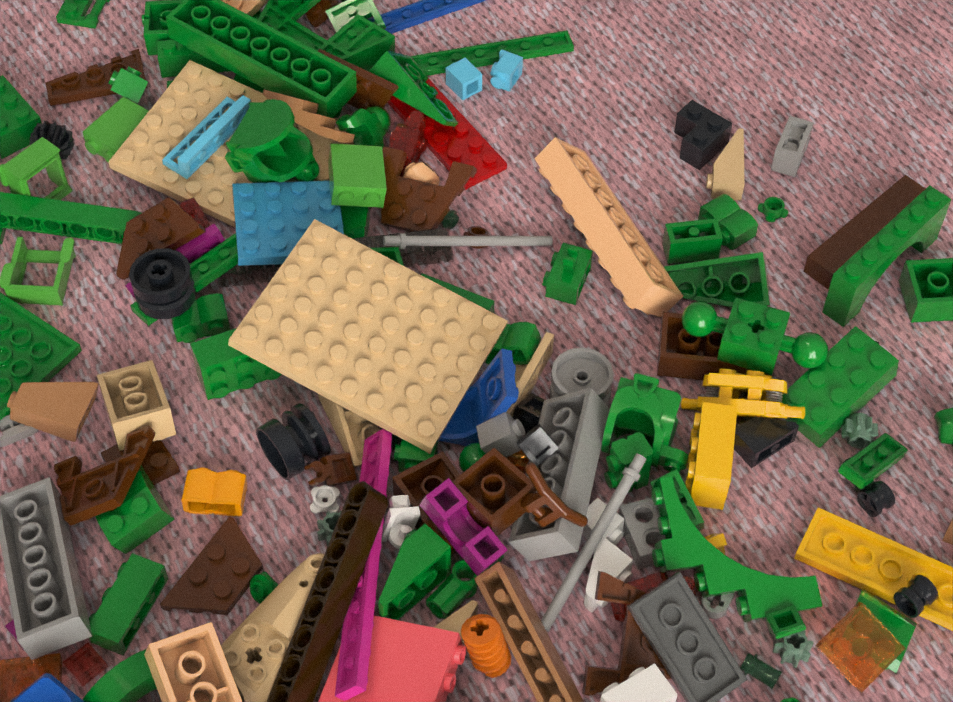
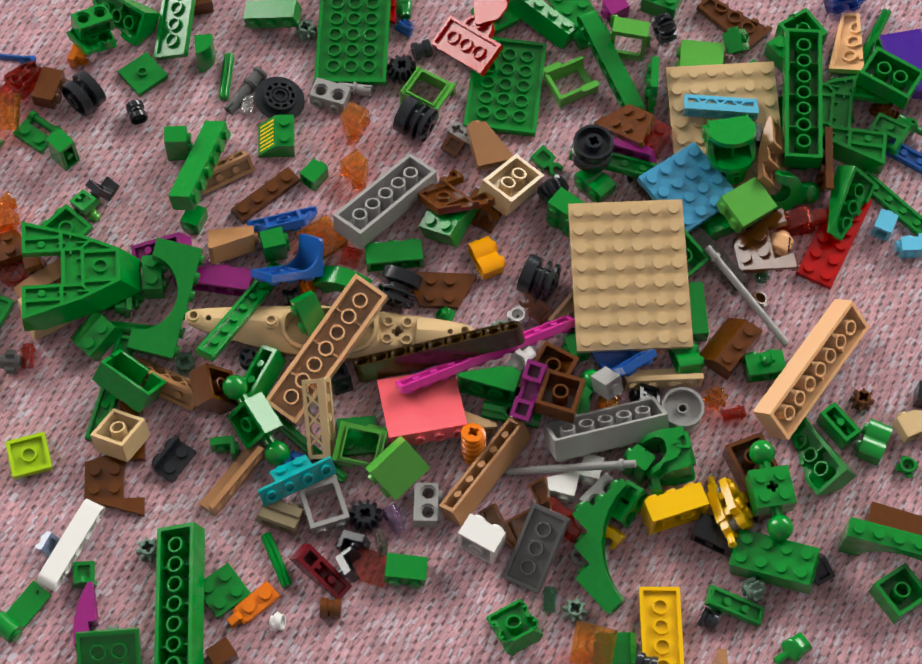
camera: 60 degrees right, 10 degrees up
(19, 447) = (453, 145): none -> reddish brown plate
(112, 185) = (651, 82): none -> green wing
(125, 354) = (545, 159): none -> green plate
(176, 364) = (551, 186): none -> black gear
(183, 609) = (399, 284): none -> black wheel
(521, 290) = (729, 346): none -> reddish brown slope
(537, 444) = (610, 404): black tile -> none
(557, 508) = (564, 426): reddish brown piece -> none
(580, 337) = (719, 401): none -> clear orange gear
(612, 330) = (733, 413): none -> clear red pin
(669, 206) = (861, 400): none -> reddish brown gear
(784, 622) = (582, 596): green slope -> none

